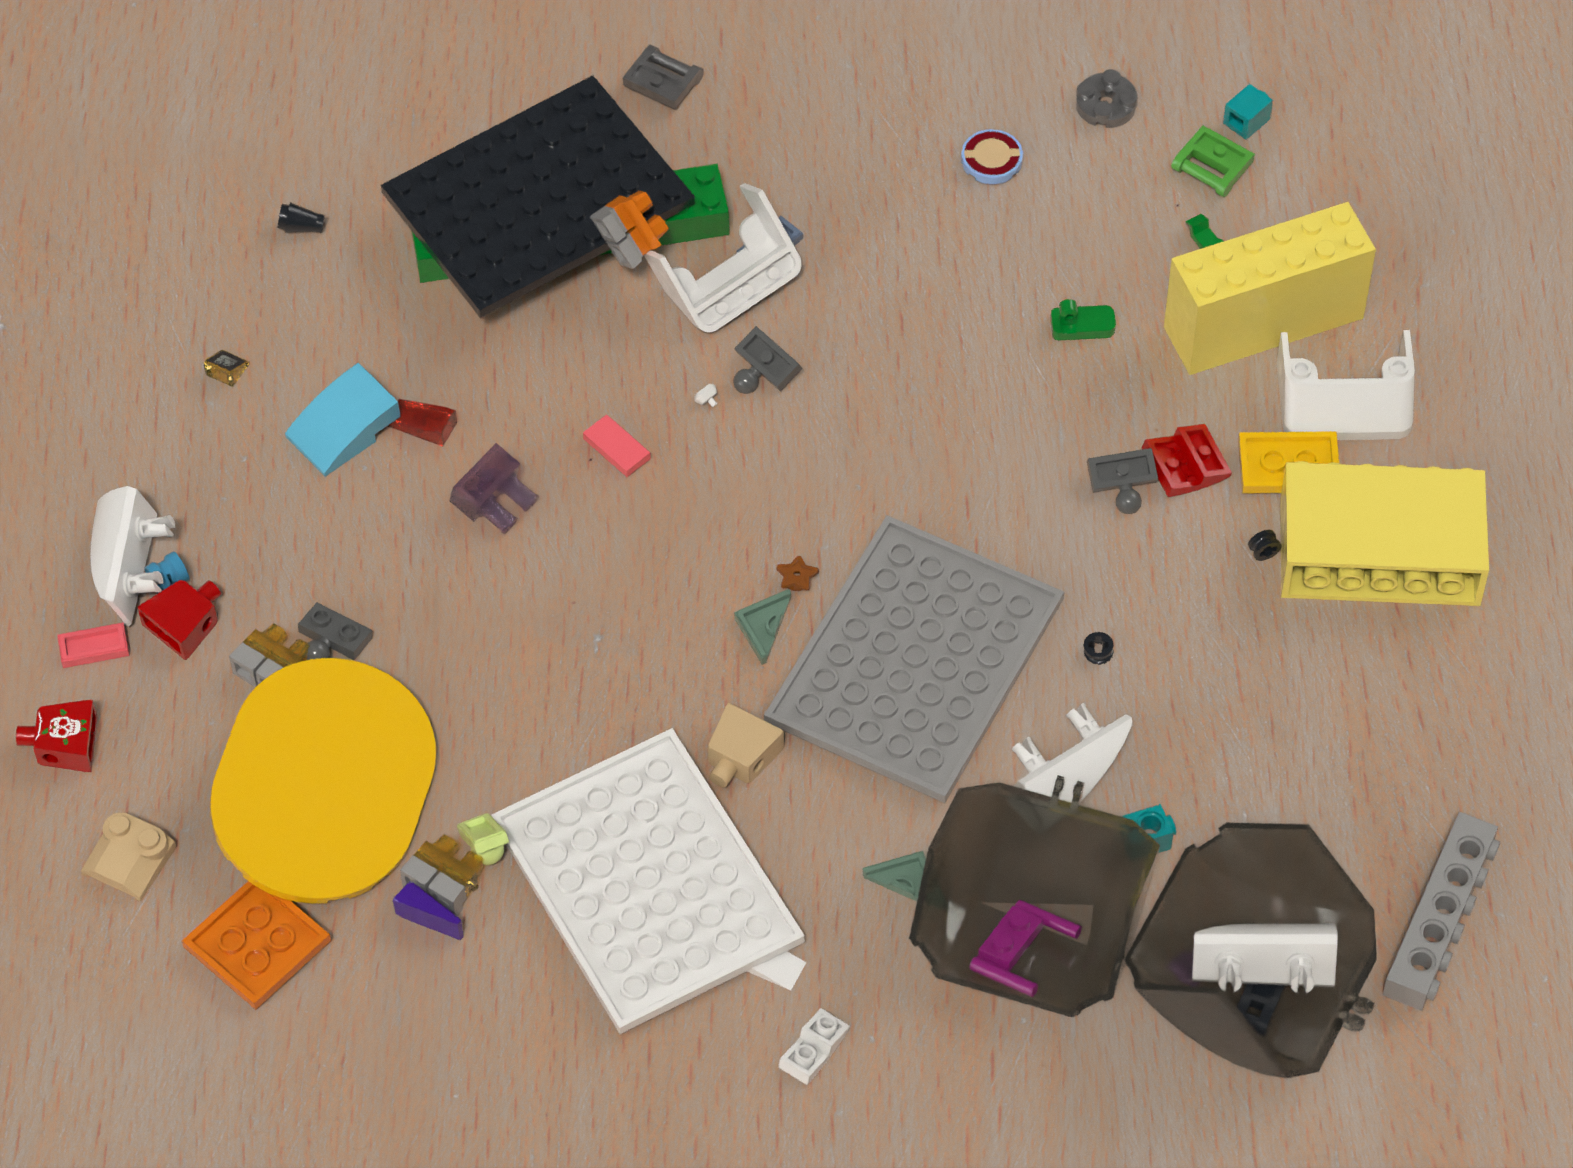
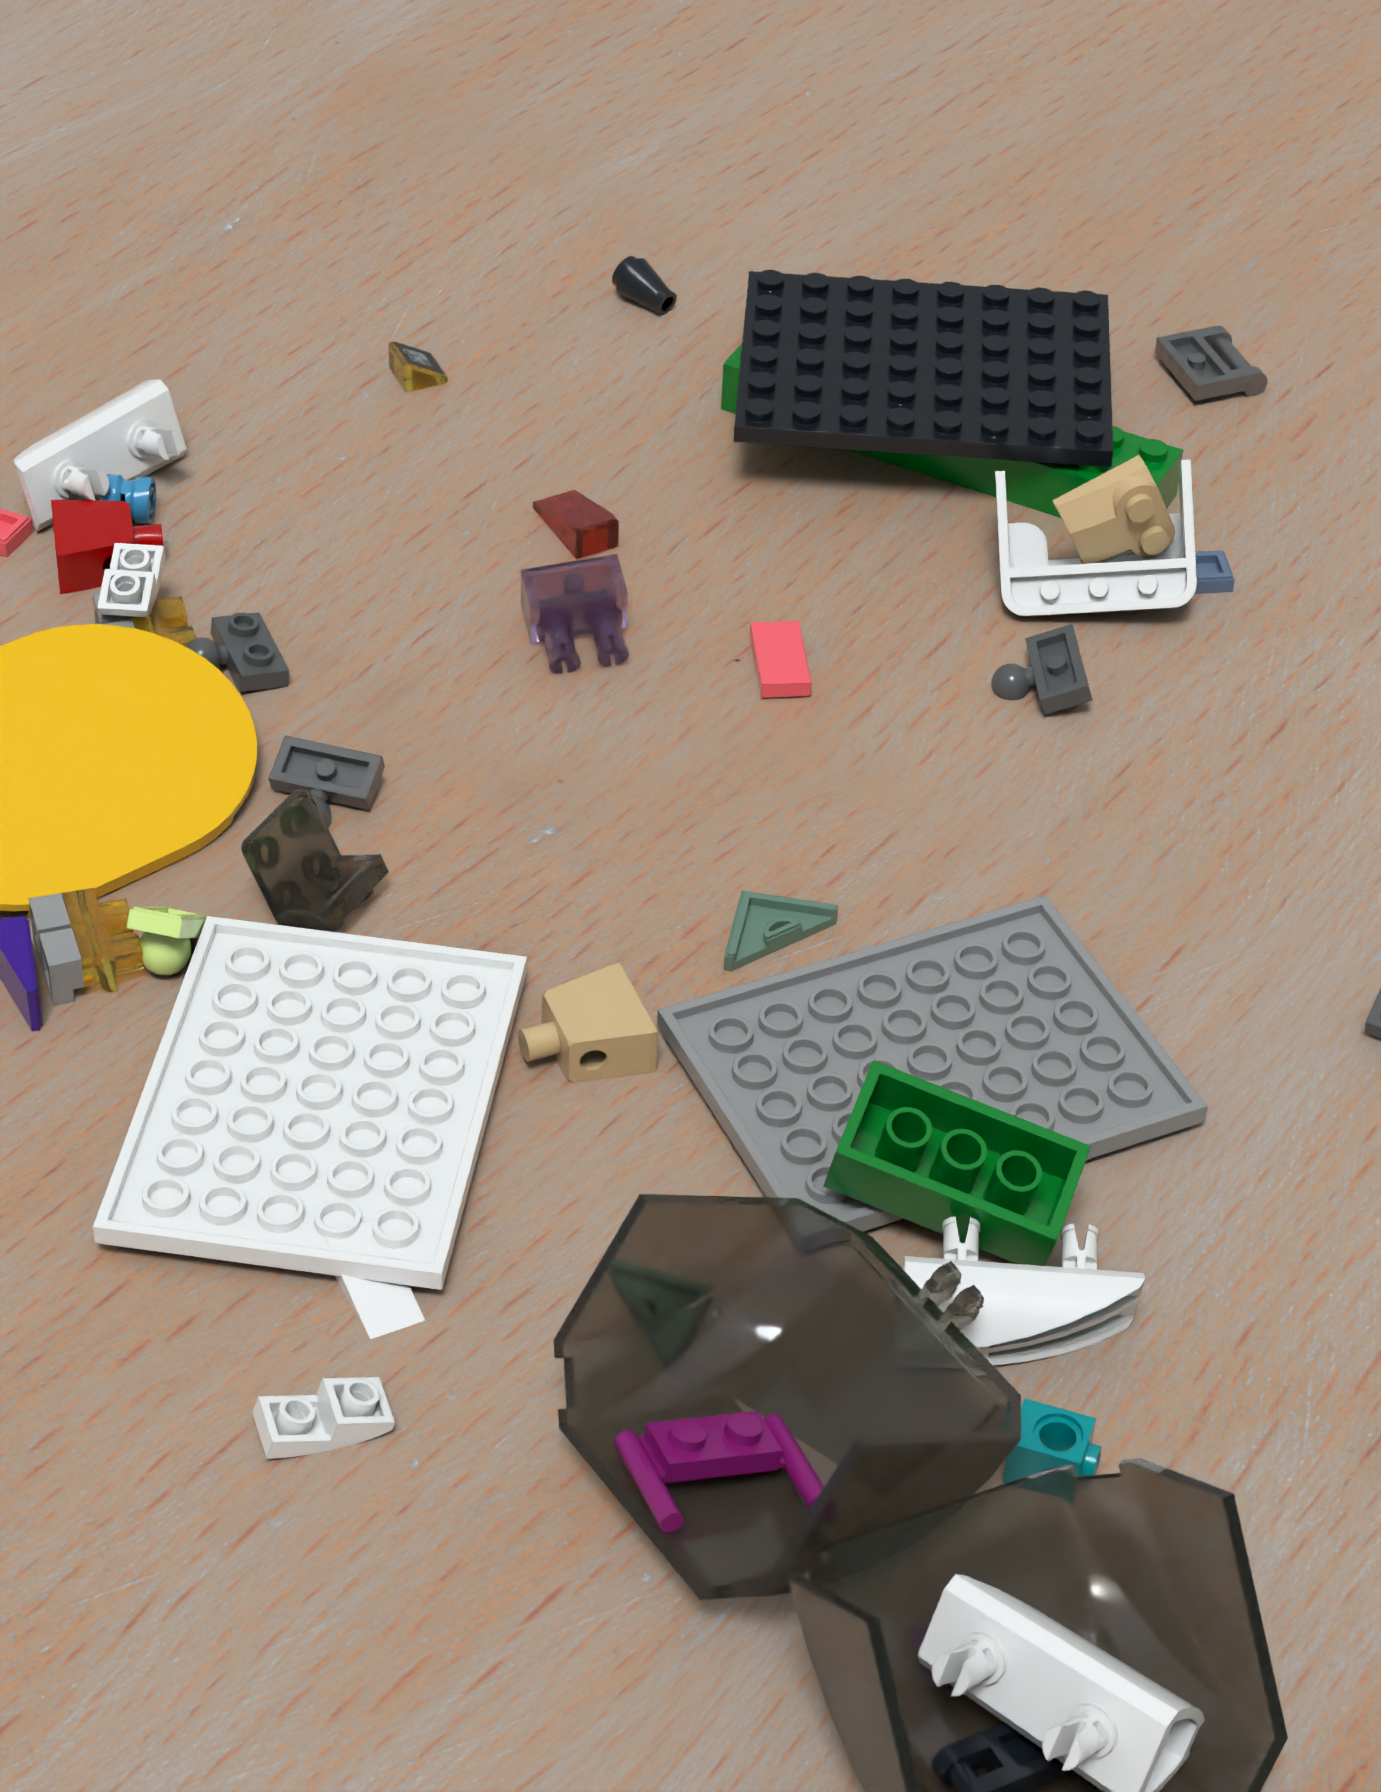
camera: 35 degrees right, 15 degrees down
(248, 634) = (132, 580): none -> white slope
(343, 419) = (483, 469): medium azure slope -> none
(461, 685) = (327, 772): none -> dark grey plate
(524, 755) = (303, 870): none -> clear smoke bracket
(627, 230) = (989, 411): hips -> none
(706, 395) = (944, 668): white rock -> none
(735, 241) = (1117, 515): none -> tan slope
(795, 582) = (864, 899): dark orange plate -> none
(994, 712) = (949, 1156): none -> green brick
(1107, 650) = (1202, 1214): black bush -> none

